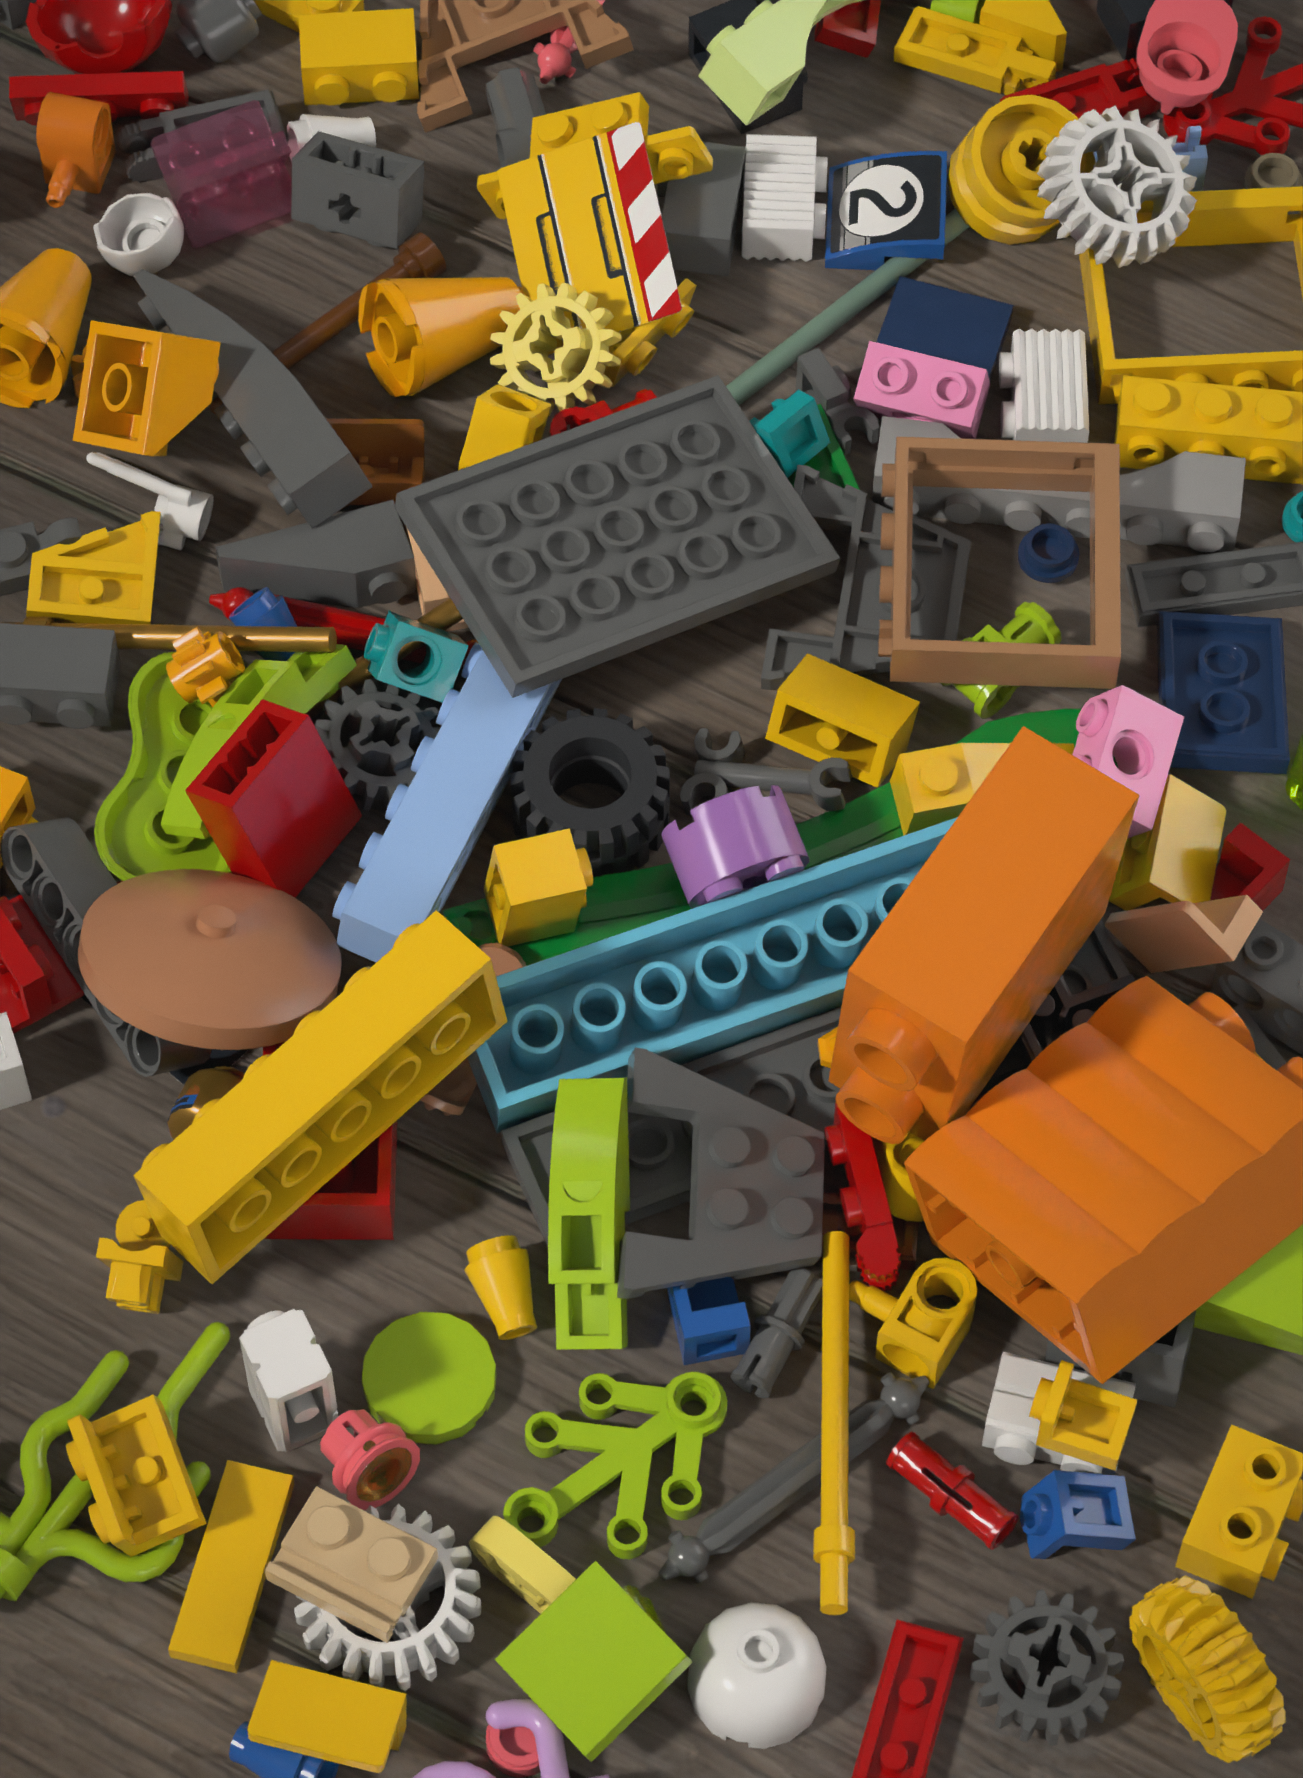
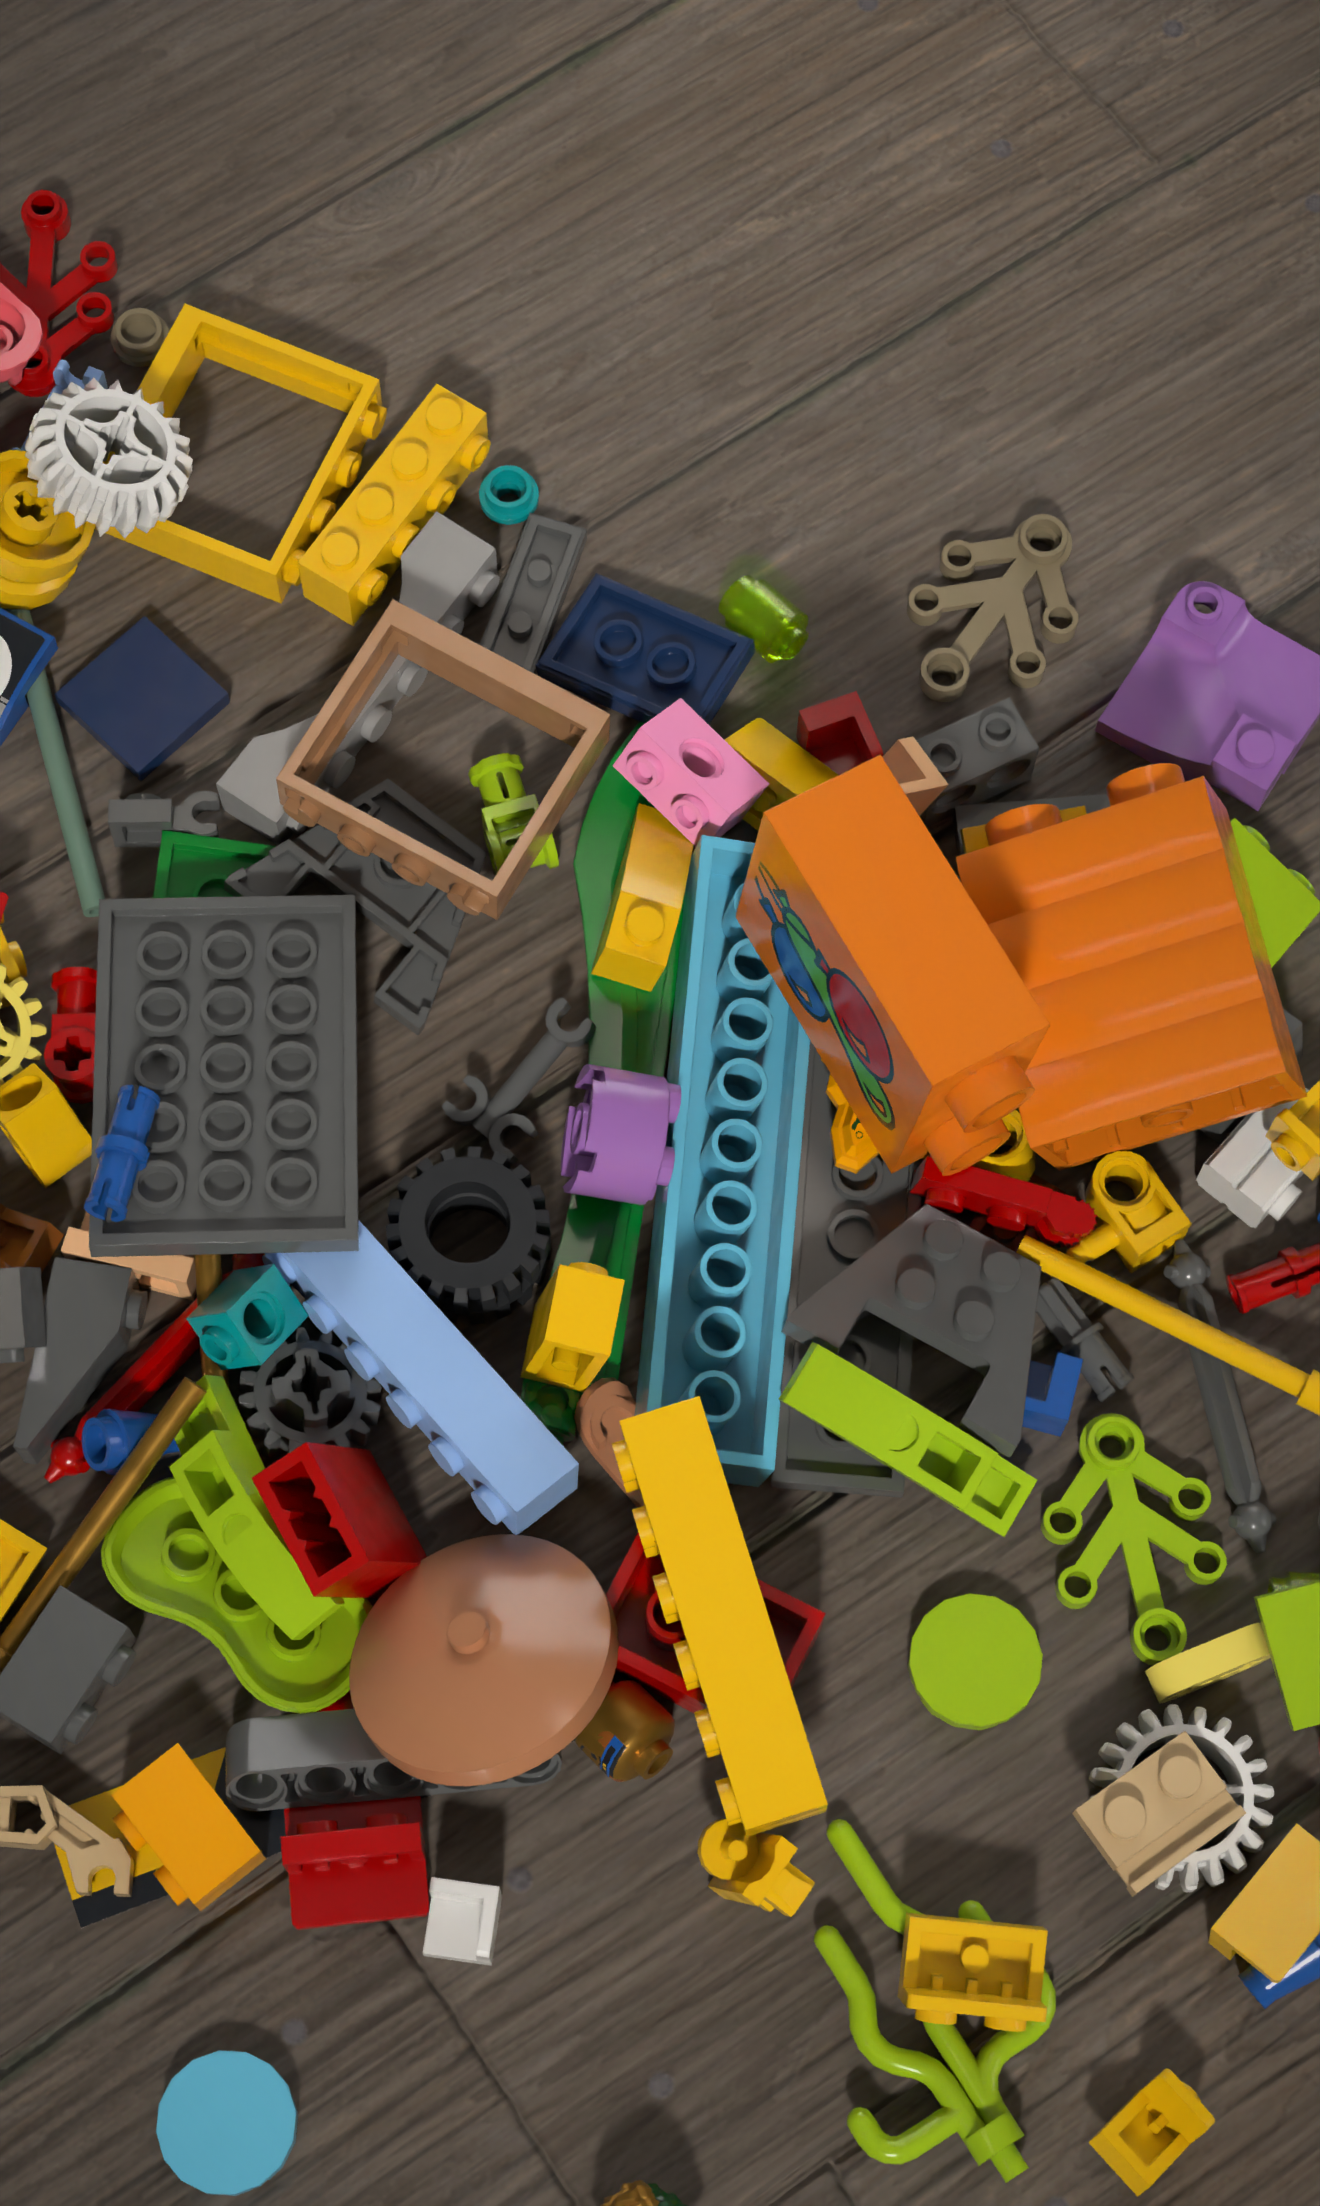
camera: 65 degrees left, 10 degrees up
(67, 1700) = (1152, 2130): none -> yellow bracket
(204, 666) = (153, 1517): light orange gear -> none
(231, 1566) = (1079, 1923): yellow tile -> none
(288, 1378) = (942, 1785): white brick -> none
(372, 1462) = (1036, 1752): coral piece -> none
(489, 476) = (122, 1153): none -> blue pin
(503, 1283) = (919, 1552): yellow cone -> none
(792, 431) = (191, 864): teal tile -> none
(843, 716) = (509, 980): yellow brick -> none
(922, 388) = (205, 737): bright pink brick -> none
(1046, 387) = (260, 638): white brick -> none
(1048, 553) = (422, 724): dark blue plate -> none

